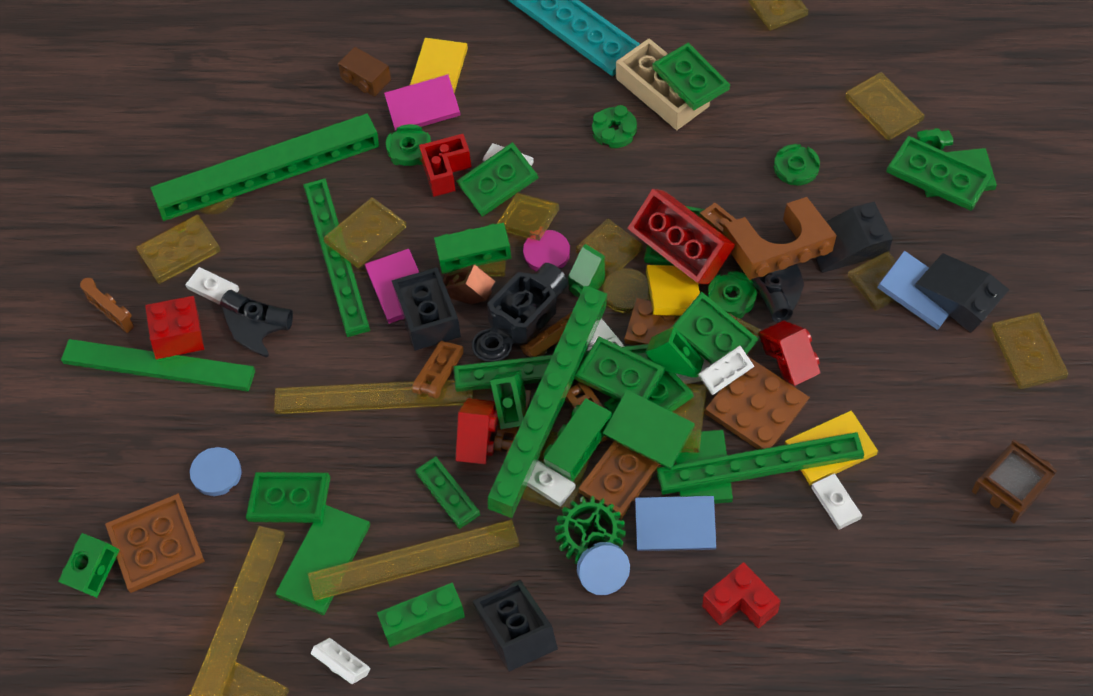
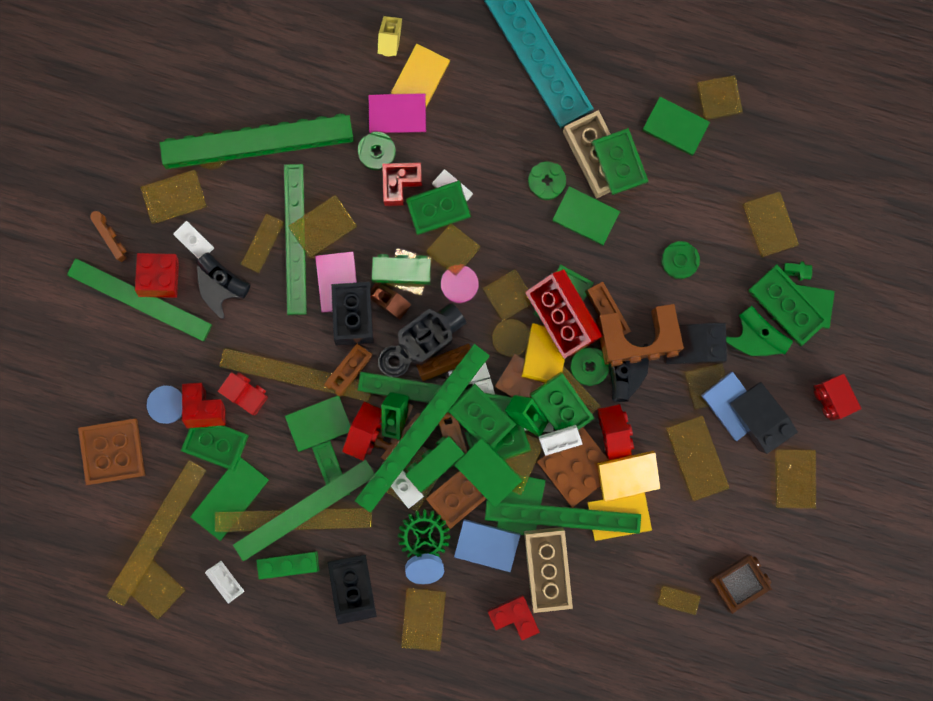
camera: 10 degrees right, 25 degrees up
(89, 565) = (70, 455): green brick -> none
(262, 459) = (199, 411): none -> red brick
(297, 270) = (262, 243): none -> clear yellow tile
(310, 429) = (239, 391): none -> red brick
(364, 71) = (357, 65): reddish brown brick -> none
(392, 39) = (389, 36): none -> light yellow slope
(416, 442) = (318, 423): none -> green tile
(420, 544) = (304, 510): none -> green tile
(587, 271) = (482, 321): green slope -> none
(621, 639) = (423, 619): none -> clear yellow plate
(671, 149) = (586, 216): none -> green tile
(740, 43) = (676, 126): none -> green tile
(764, 524) = (548, 570): none -> tan brick
(824, 394) = (628, 476): none -> yellow tile
(836, 501) = (608, 560): white plate -> none
(901, 359) = (697, 458): none -> clear yellow tile
(919, 212) = (753, 342): none -> green pin
(945, 525) = (678, 600): none -> clear yellow tile
(1038, 244) = (836, 397): none -> red brick

